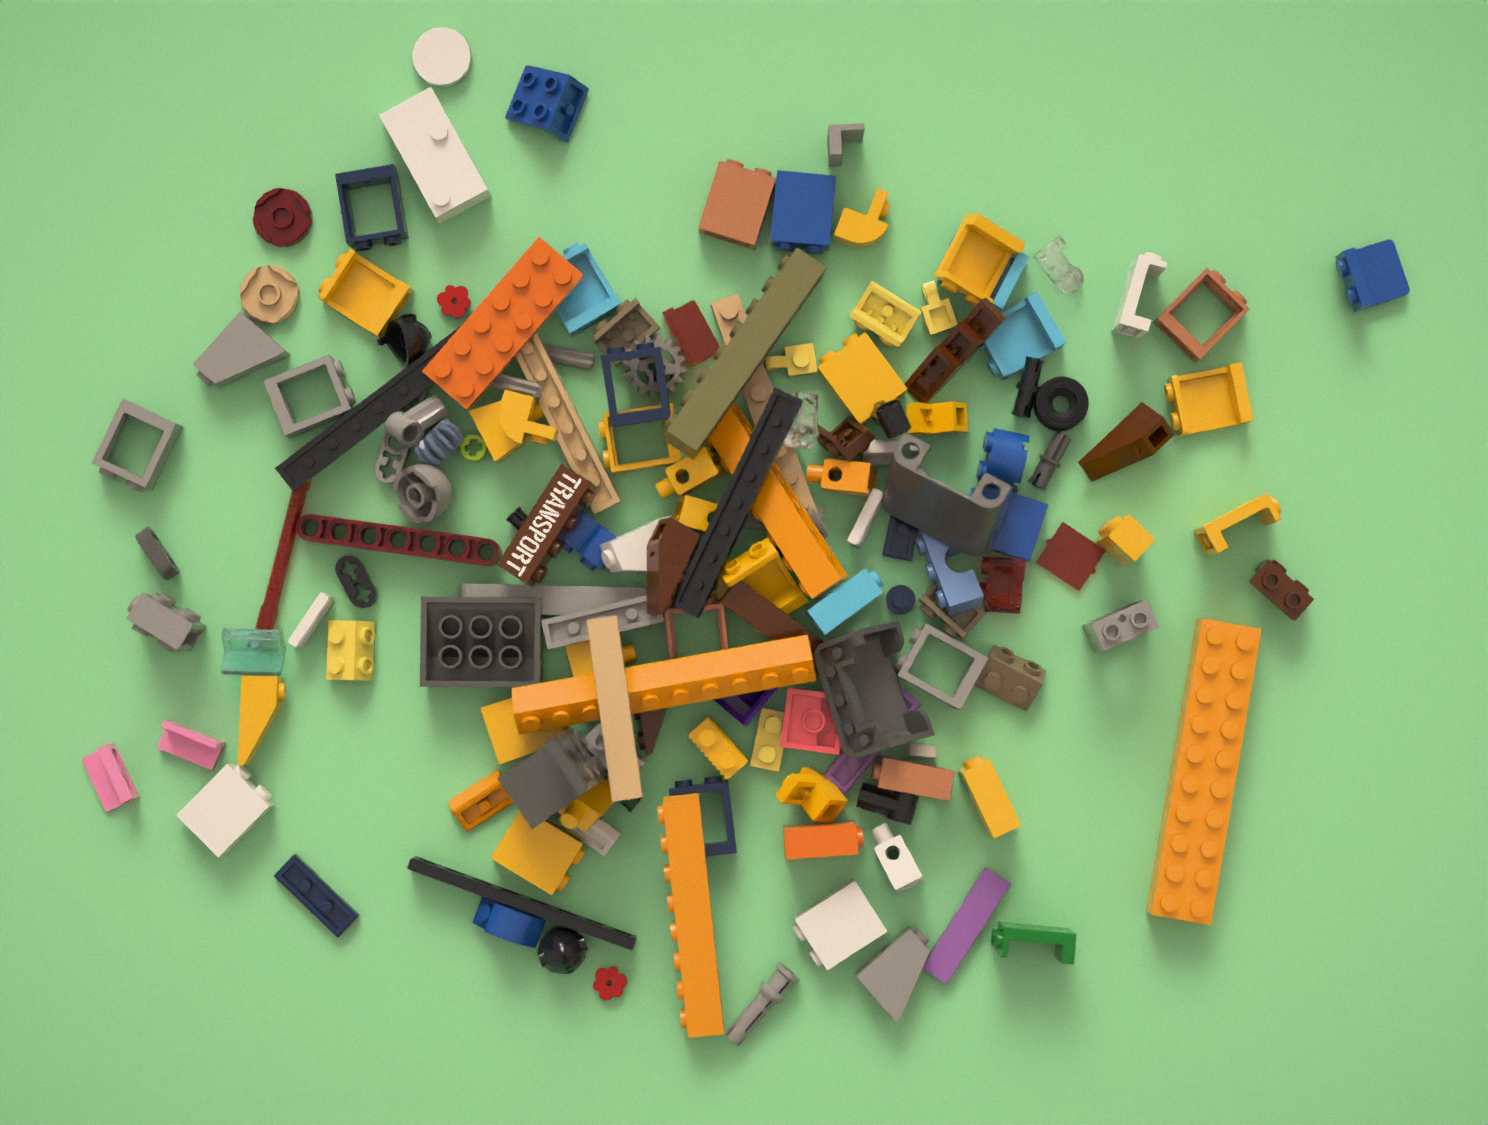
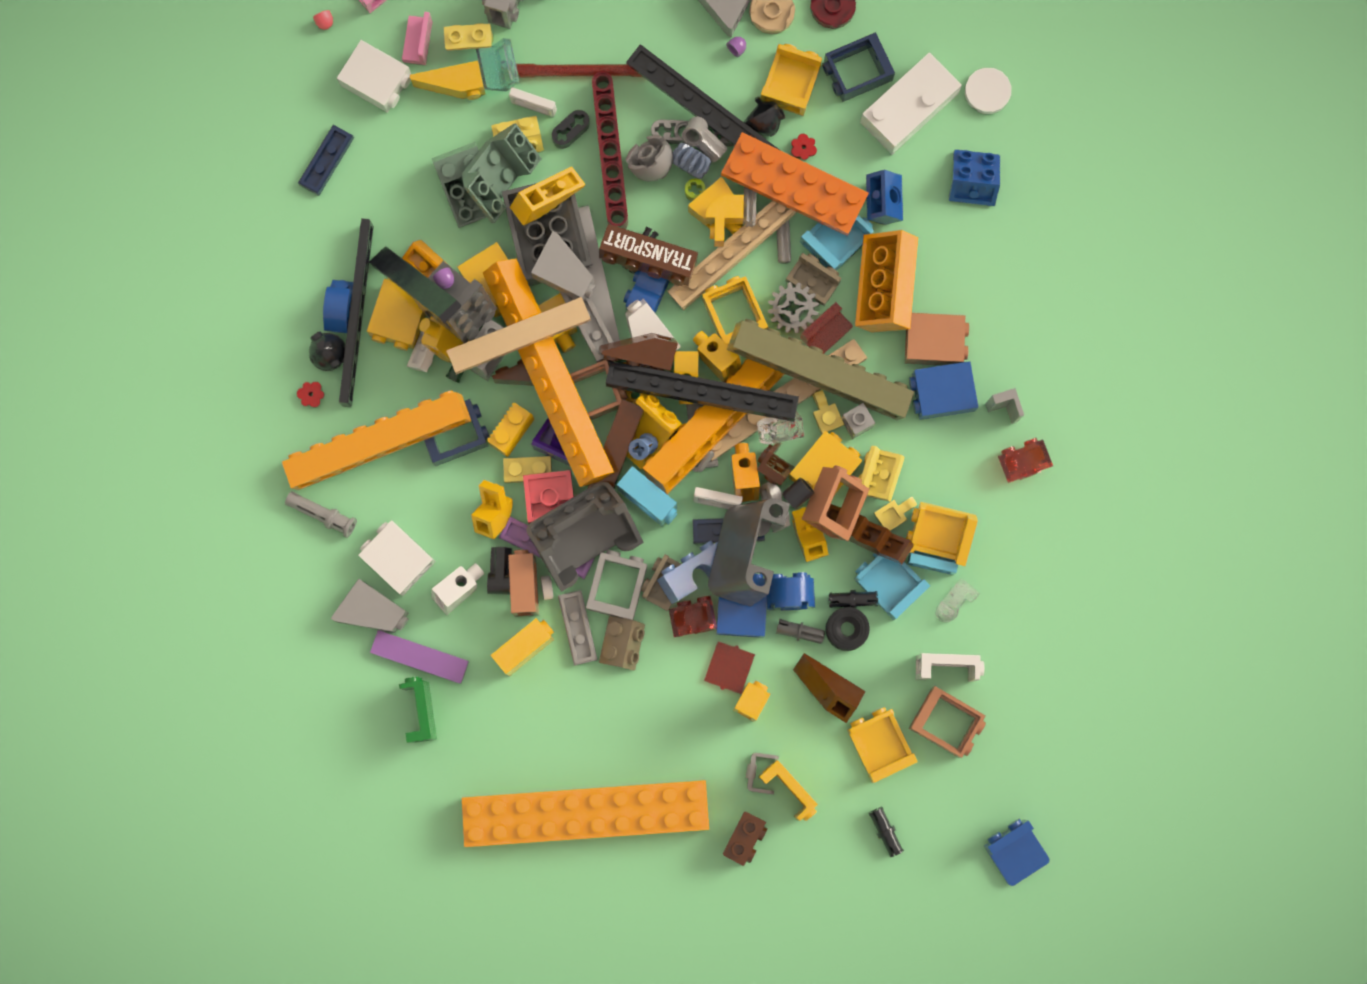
camera: 70 degrees right, 5 degrees down
(135, 856) = (323, 19): none -> coral hinge
(208, 680) = (468, 36): none -> light yellow bracket
(282, 407) = (689, 40): light grey window -> none
(304, 349) = (736, 46): none -> medium lavender hinge
(388, 687) = (497, 167): none -> sand green slope
(394, 727) = (449, 170): none -> sand green slope
(442, 631) = (546, 195): none -> yellow slope
(520, 820) = (415, 284): none -> black tile
(523, 782) = (444, 278): none -> medium lavender hinge
(542, 634) = (563, 270): none -> light grey slope
(546, 218) = (884, 197): none -> blue brick
(649, 415) = (783, 311): dark blue window -> none
(653, 244) = (886, 281): none -> light orange brick
(782, 591) = (643, 446): none -> medium blue bush
(814, 324) = (858, 421): none -> light grey brick
(822, 839) = (458, 525): orange brick -> none
(862, 230) = (942, 440): yellow brick -> none
(899, 386) = (820, 502): none -> nougat window
(900, 599) = (661, 542): dark blue plate -> none
(913, 137) = (1025, 461): none -> clear red cylinder
(978, 726) = (577, 627): none -> light grey tile
(1120, 626) = (688, 725): light grey window -> none
(1199, 561) = (751, 772): none -> light grey piece
(1311, 421) = (886, 832): none -> black pin

